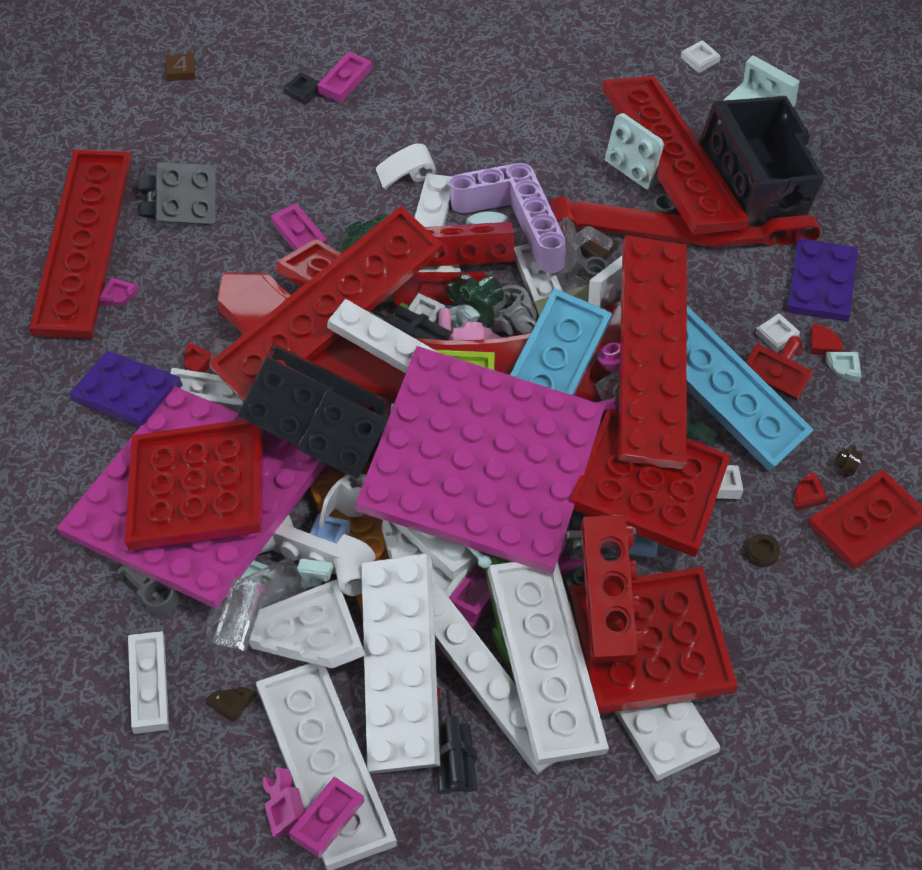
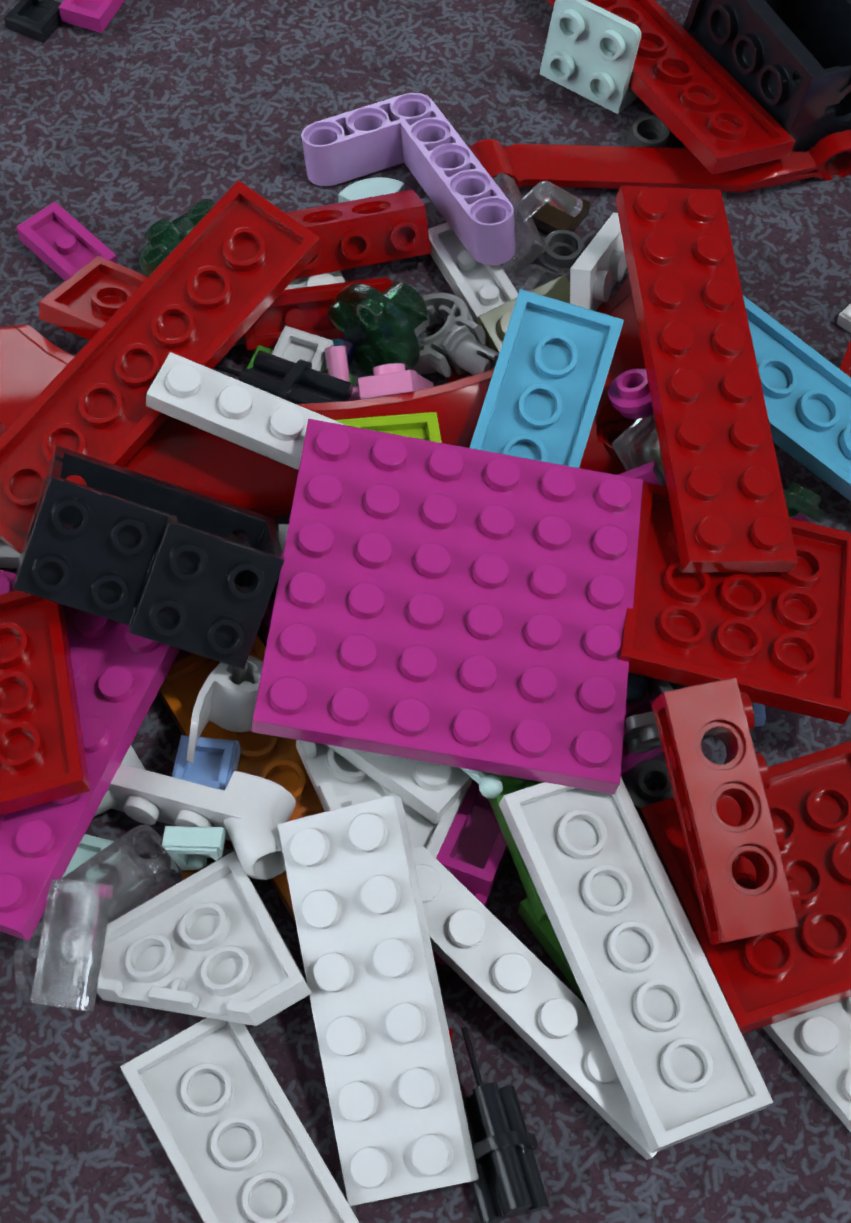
camera: 10 degrees left, 5 degrees up
(231, 701) = (80, 1106): dark brown tile -> none
(412, 159) = (230, 109): white panel -> none
(434, 201) = (281, 168): white plate -> none
(462, 314) = (366, 353): light aqua tile -> none

